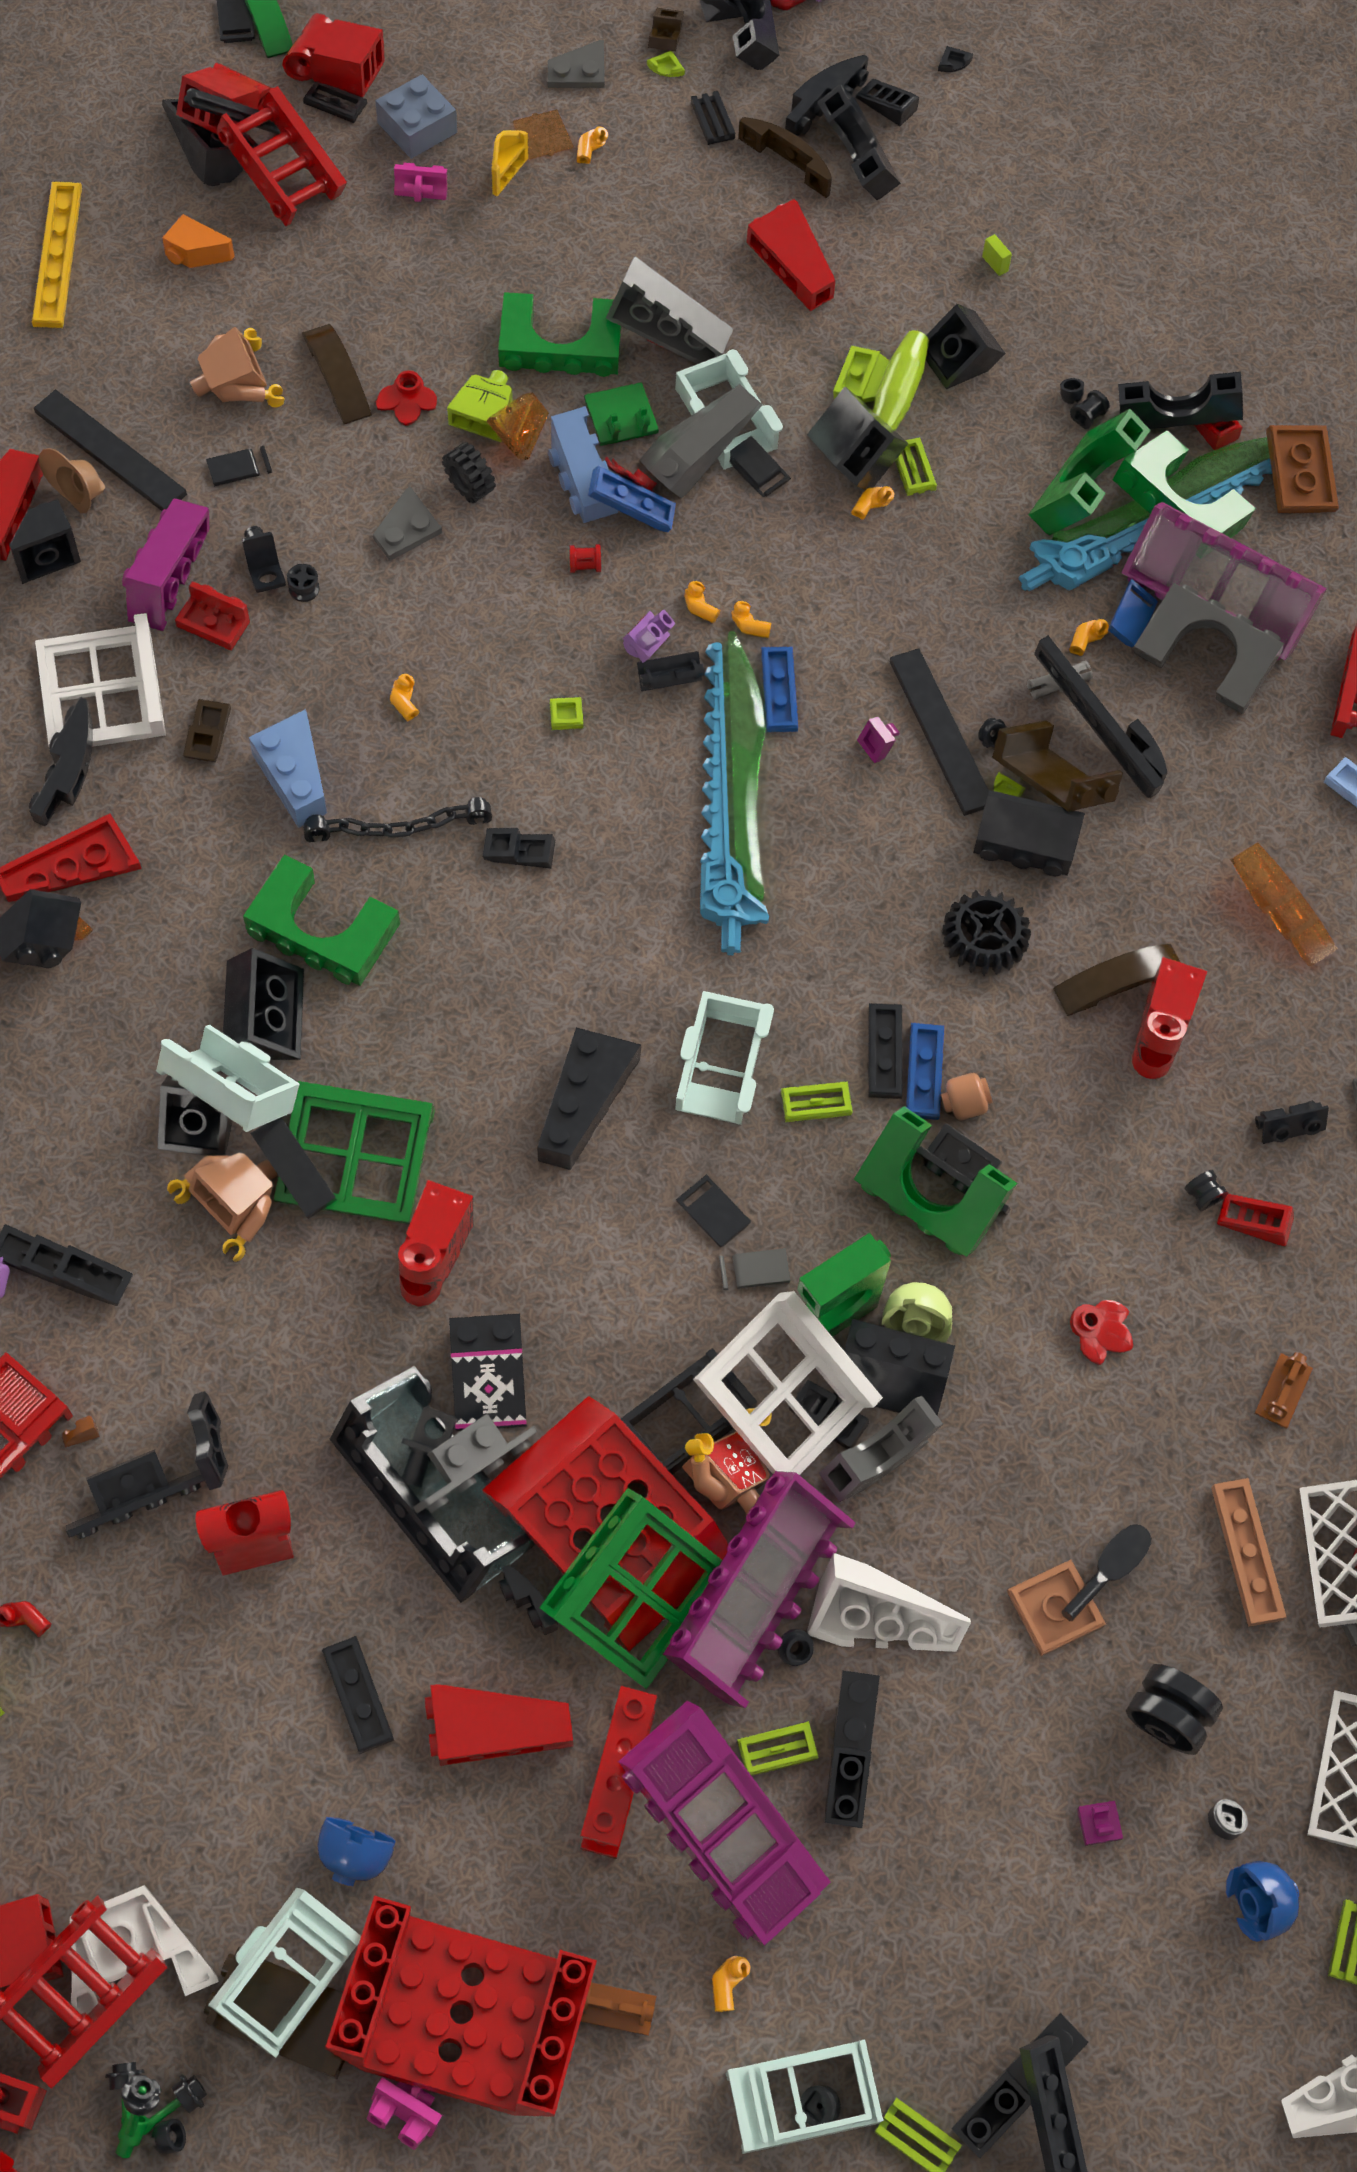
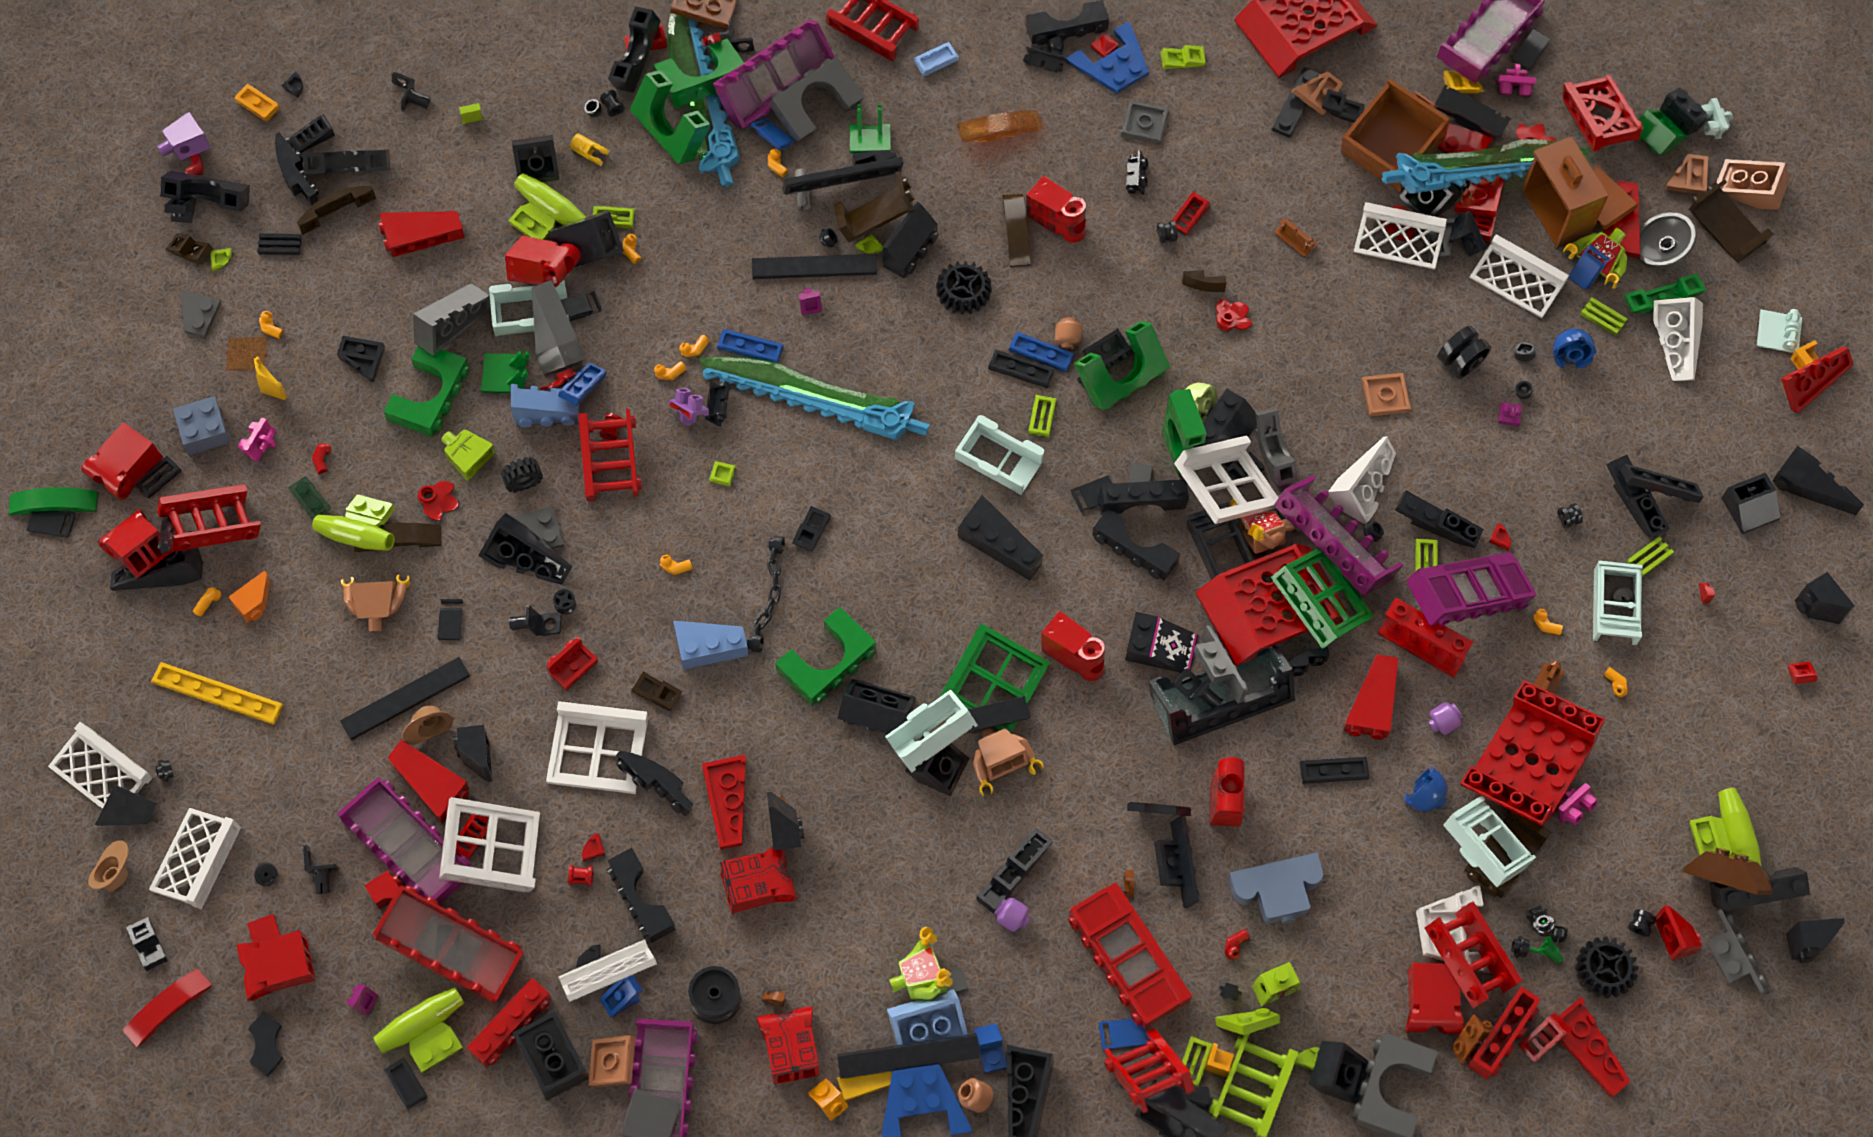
camera: 70 degrees left, 0 degrees up
(128, 1656) = (1278, 887): none -> sand blue brick
(165, 561) = (518, 680): magenta wedge -> none
(176, 198) = (210, 595): none -> light orange arm
(324, 318) = (360, 524): none -> lime plate
(360, 262) = (309, 497): none -> clear green plate
(367, 498) = (519, 547): none -> black wedge
(419, 253) = (318, 457): none -> red arm
(496, 1849) = (1445, 718): none -> medium lavender head
(520, 424) = (492, 433): clear orange wing -> none
(525, 538) = (591, 467): none -> red fence
(584, 251) = (361, 355): none -> black wing
(655, 1250) = (1157, 559): none -> black arch
(657, 2138) = (1618, 682): none -> light orange arm
(719, 1258) = (1122, 496): none -> black arch
(795, 391) = (540, 261): none -> red piece
(862, 1864) = (1500, 537): none -> red tile
(907, 28) = (257, 102): none -> light orange plate
(942, 1972) = (1570, 515): none -> black wheel
(995, 181) = (410, 95): none -> black bracket
(1005, 401) = (586, 147): none -> yellow hinge
(1116, 1561) = (1372, 356): black piece -> none
(1139, 1261) = (1197, 280): none -> dark brown slope
(1149, 1828) = (1529, 389): none -> black hinge
(1183, 738) = (869, 137): none -> plate
(1246, 491) = (711, 39): none -> red tile
(1248, 1552) = (1383, 288): nougat plate -> none
(1263, 517) = (729, 34): none -> black bracket

